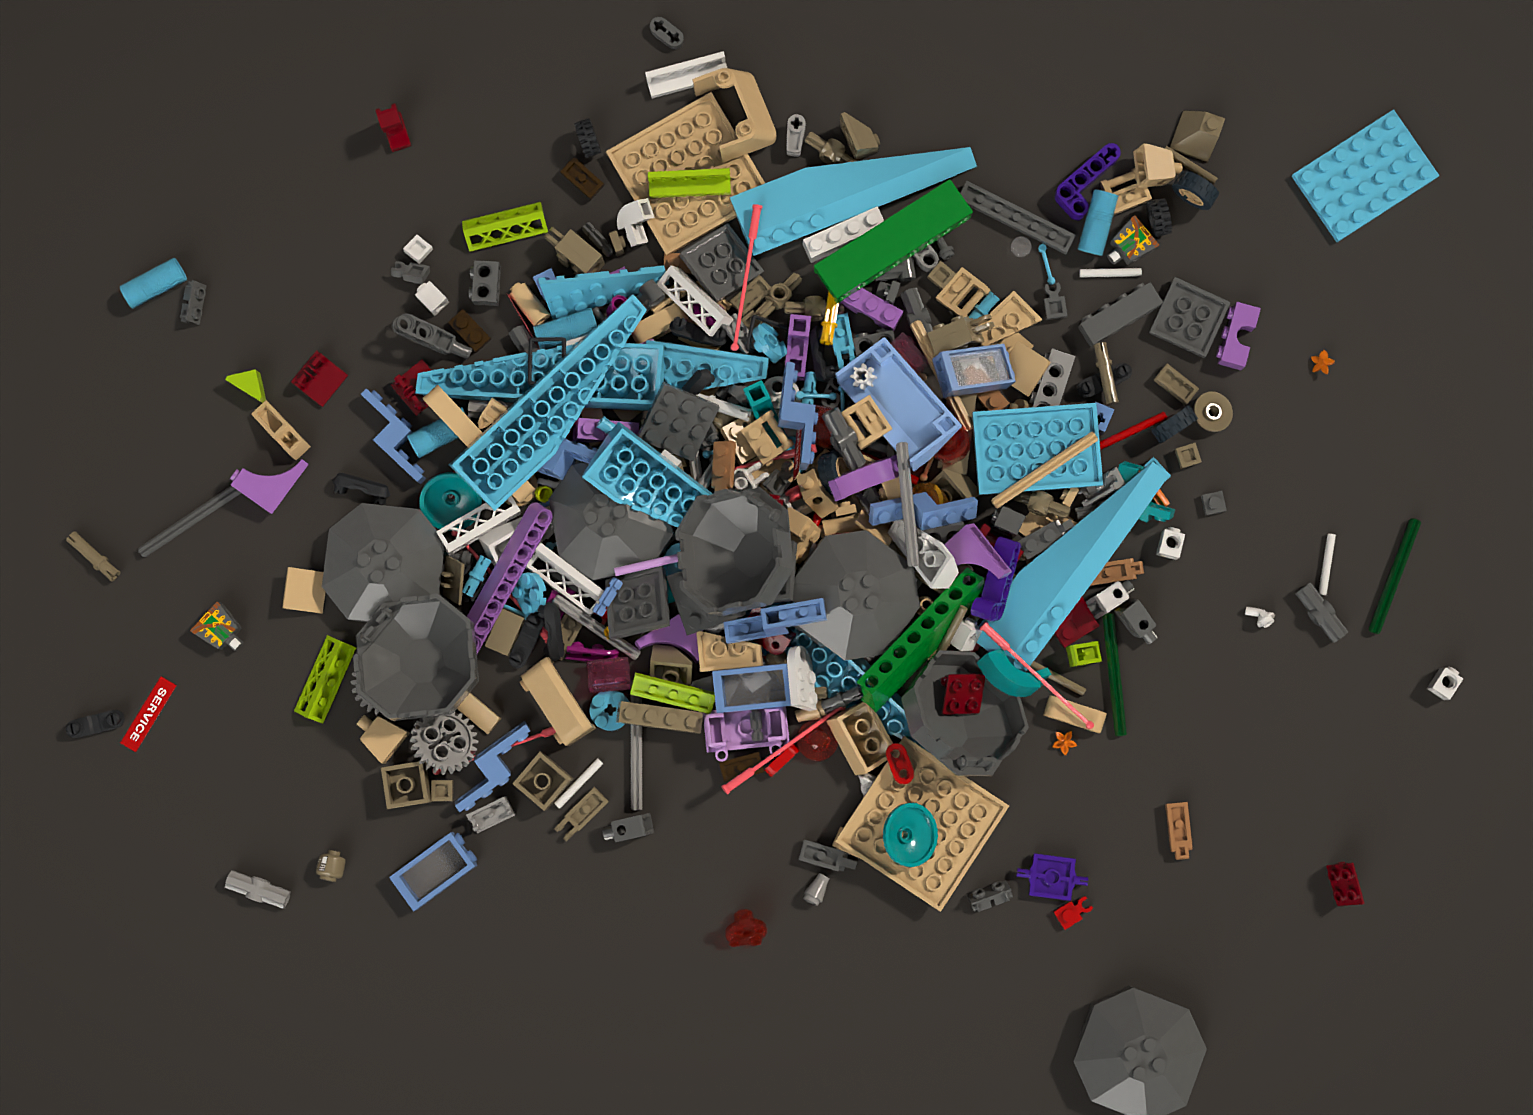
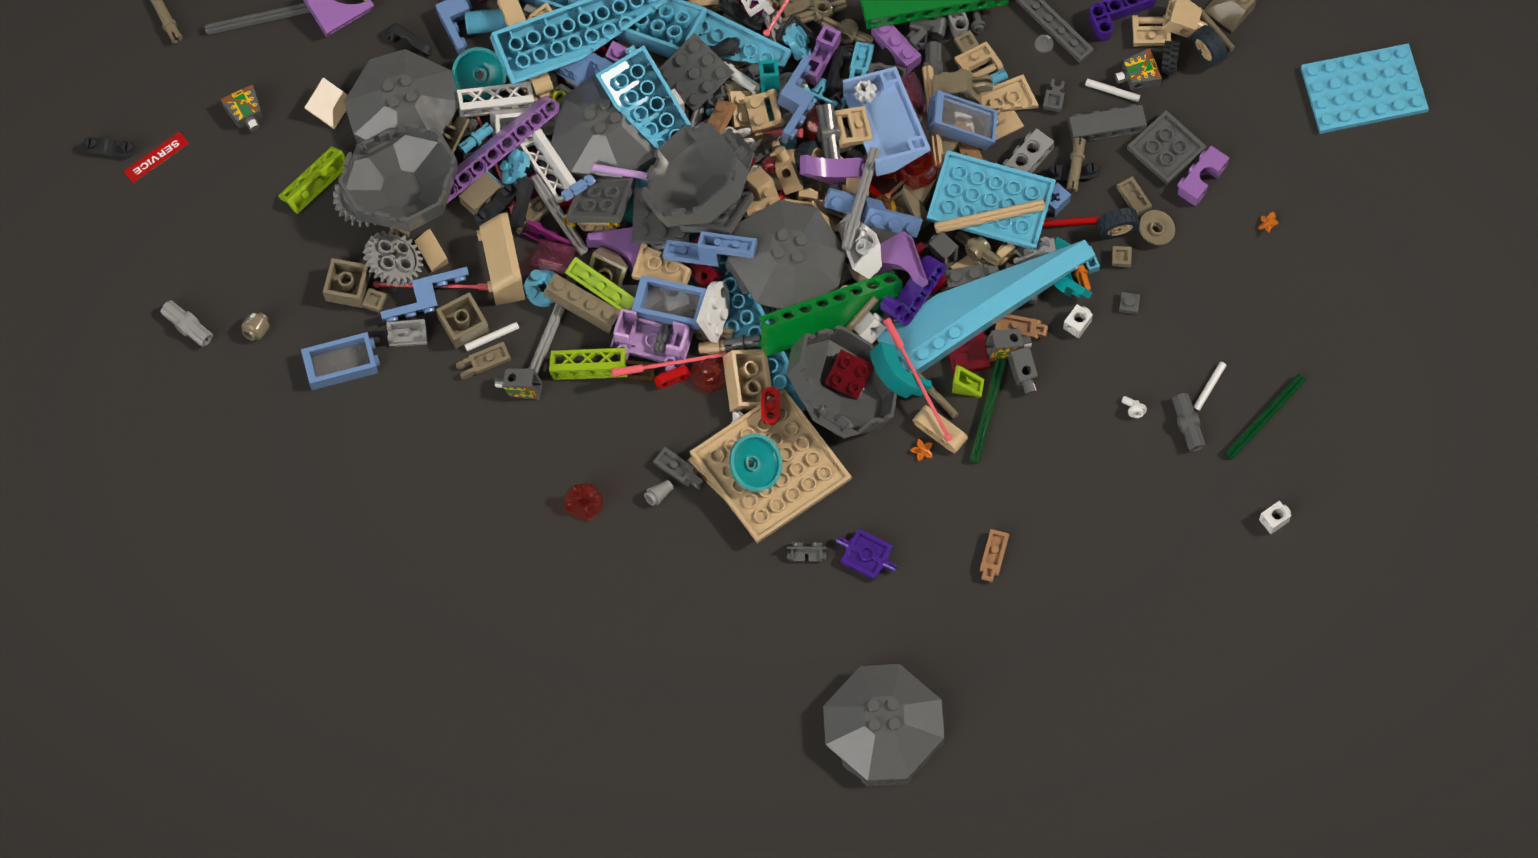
camera: 20 degrees right, 15 degrees down
(382, 737) = (343, 239): tan torso -> none
(690, 789) = (586, 370): none -> lime fence
(829, 323) = (855, 44): yellow axle -> none
(1027, 366) = (1009, 137): tan piece -> none
(1042, 248) = (1062, 52): medium azure hinge -> none
(1070, 914) = (870, 591): red plate -> none
(1096, 231) = (1114, 45): medium azure piece -> none
(1345, 884) = (1120, 649): dark red hinge -> none

